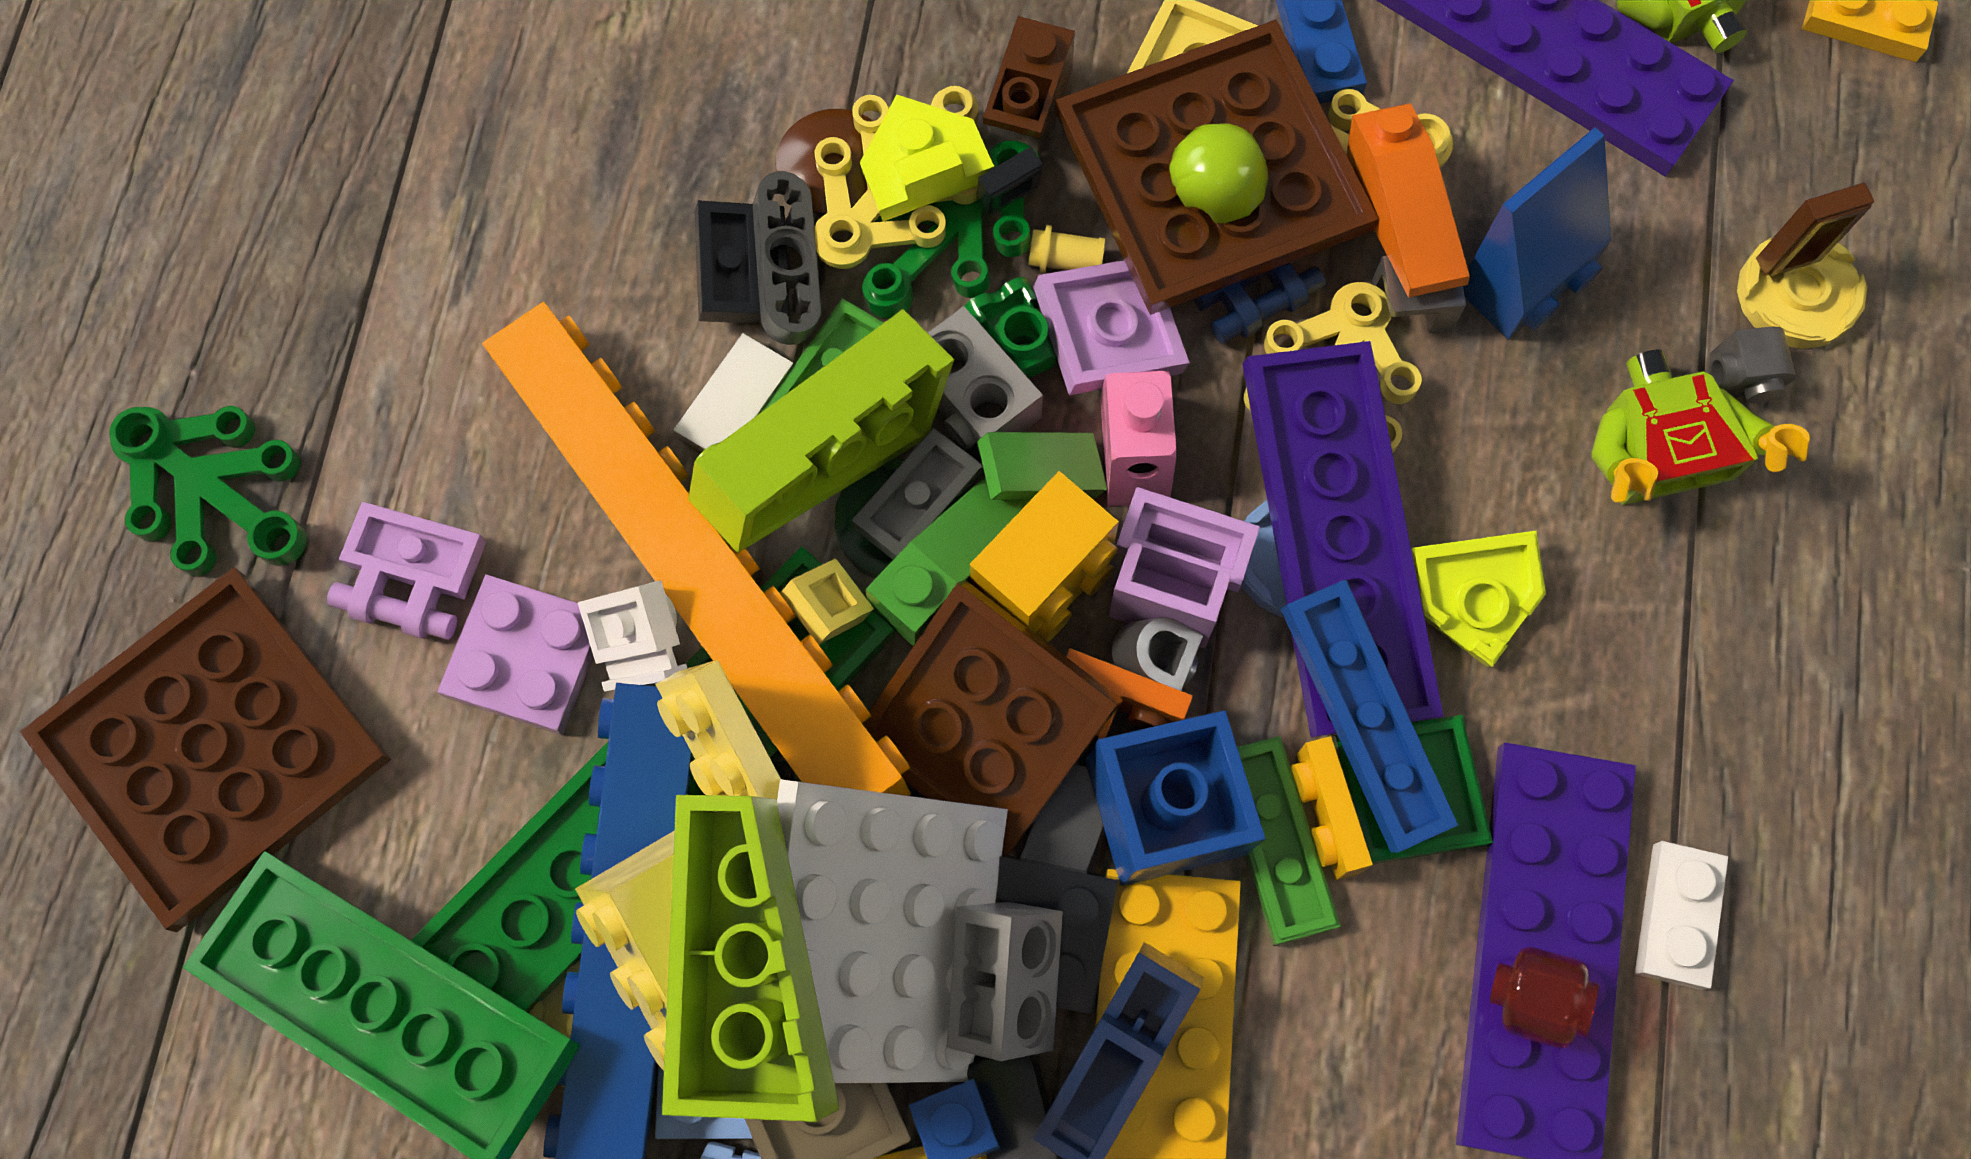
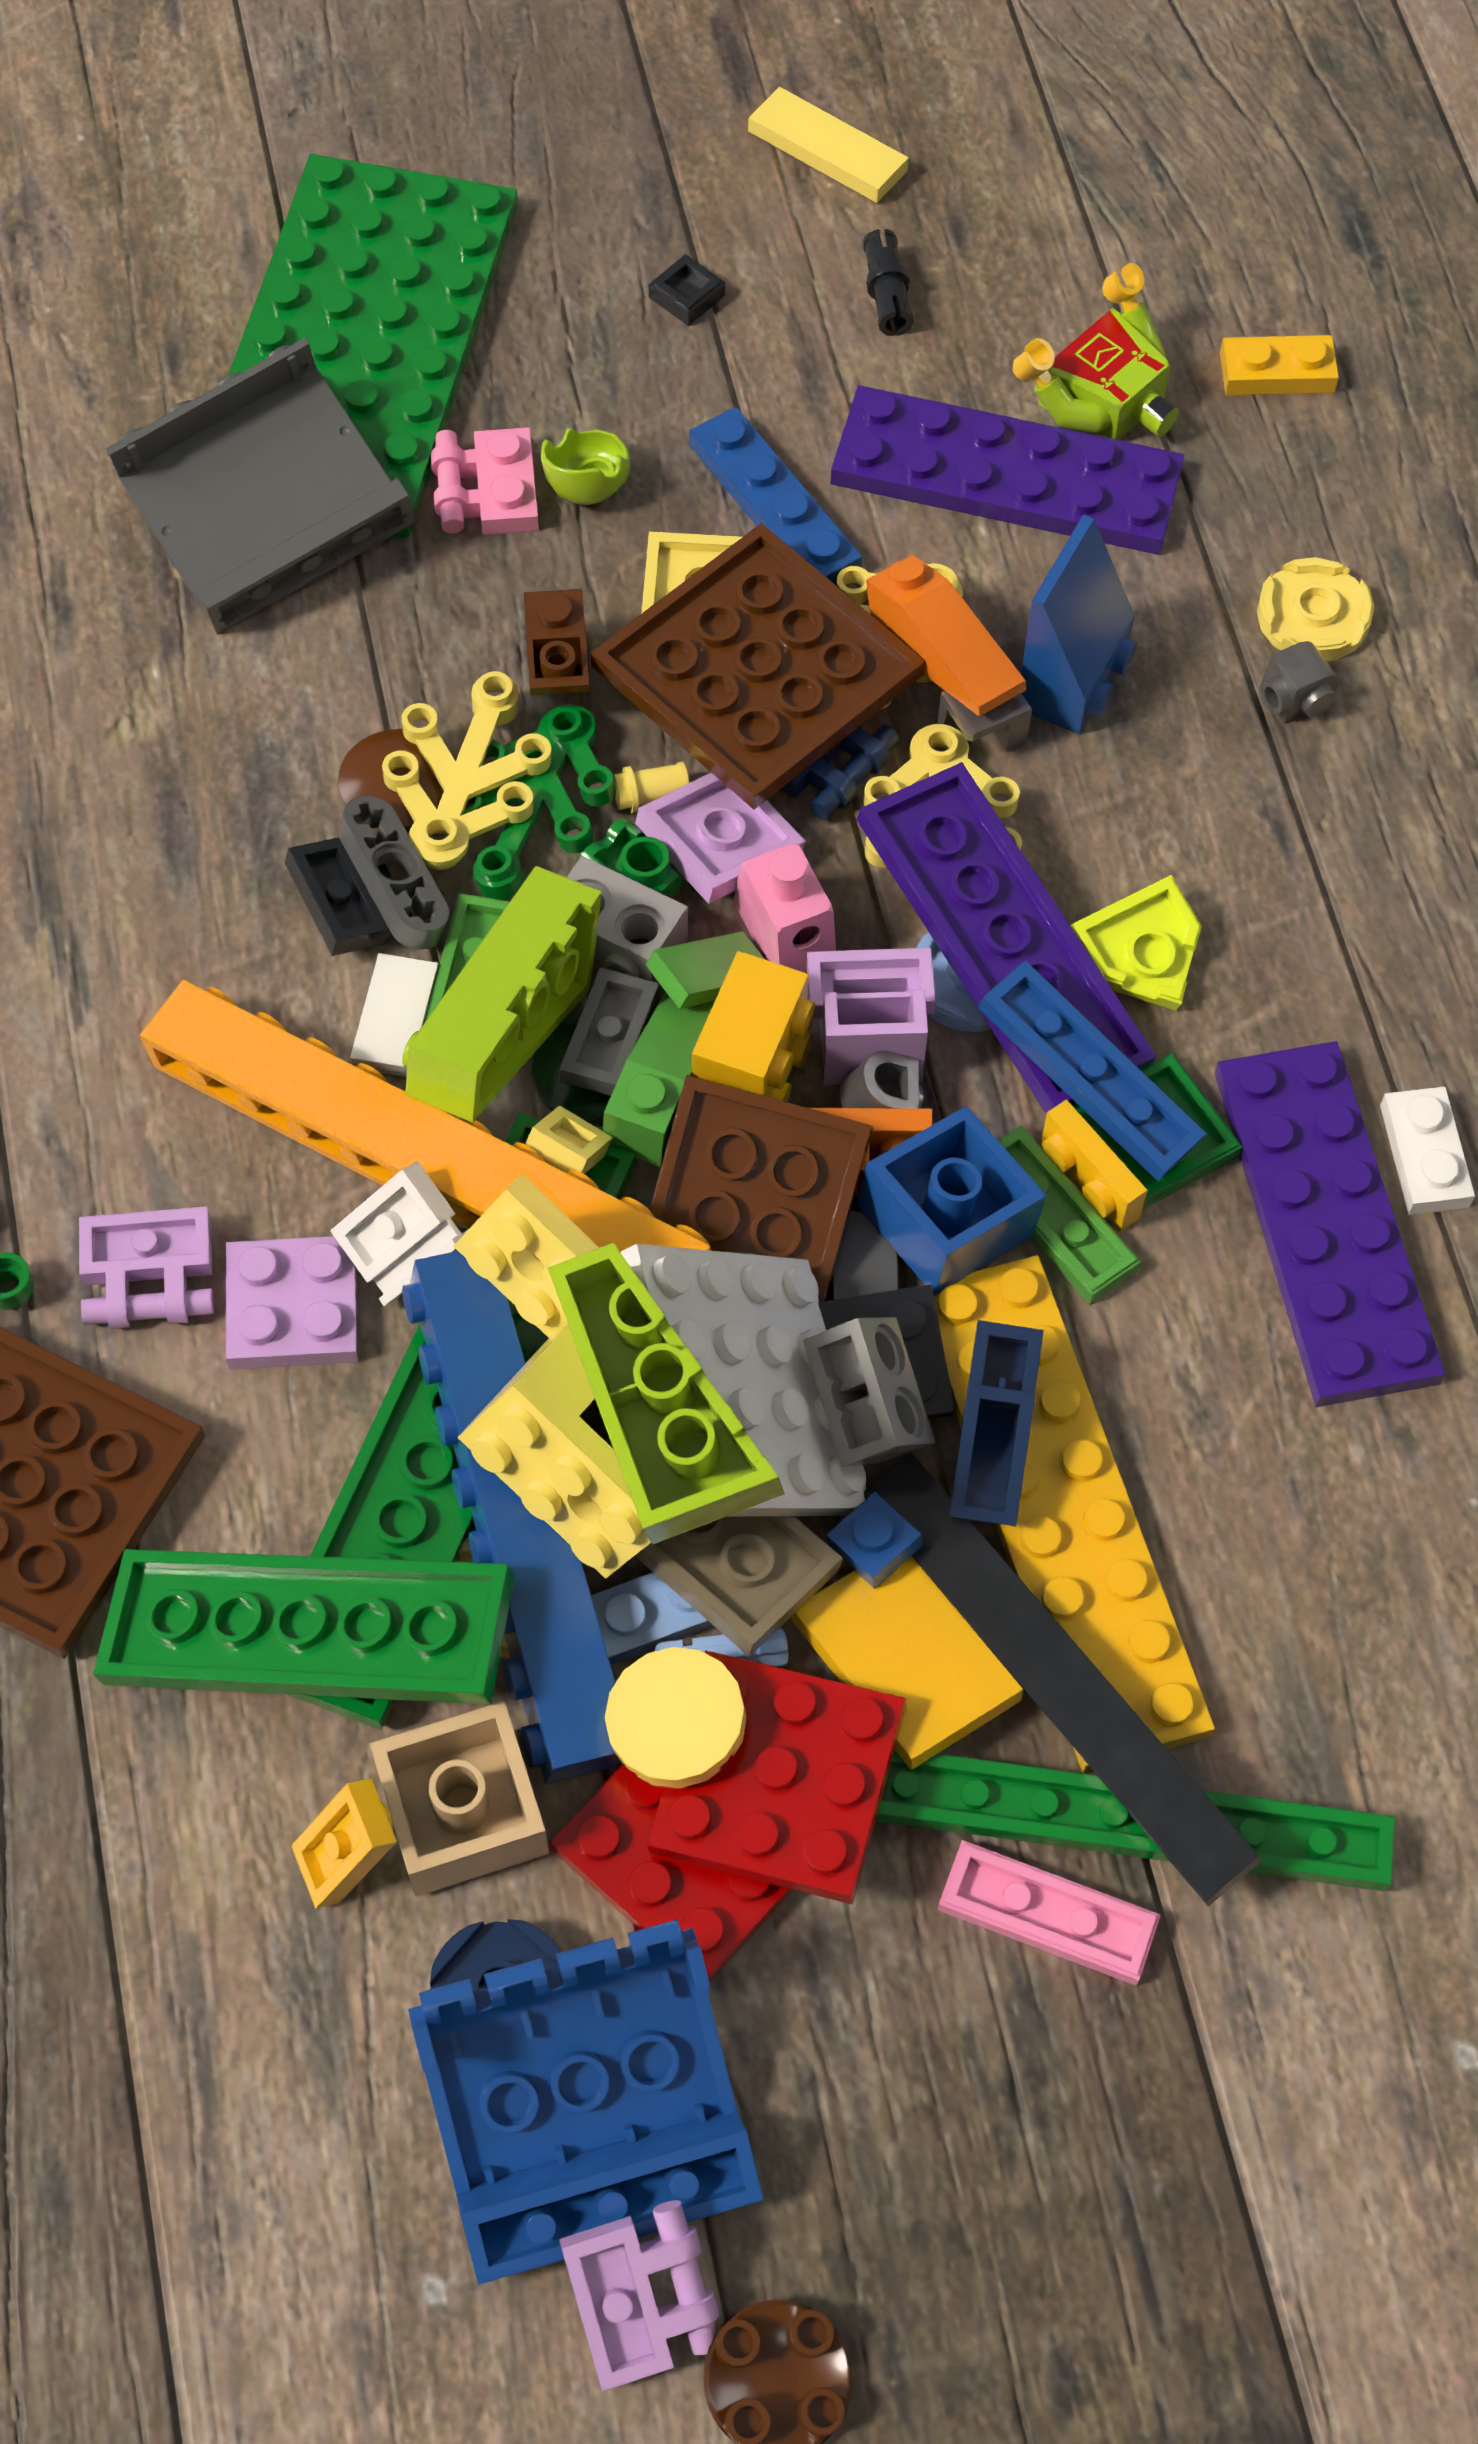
camera: 25 degrees left, 10 degrees down
(922, 157) = (488, 741): neon yellow plate -> none
(1009, 181) = (578, 736): black tile -> none
(1220, 171) = (768, 663): lime hair -> none
(1545, 997) = (1337, 1239): clear red head -> none
(1683, 434) = (1264, 758): torso -> none
(1815, 229) = (1302, 549): reddish brown tile -> none

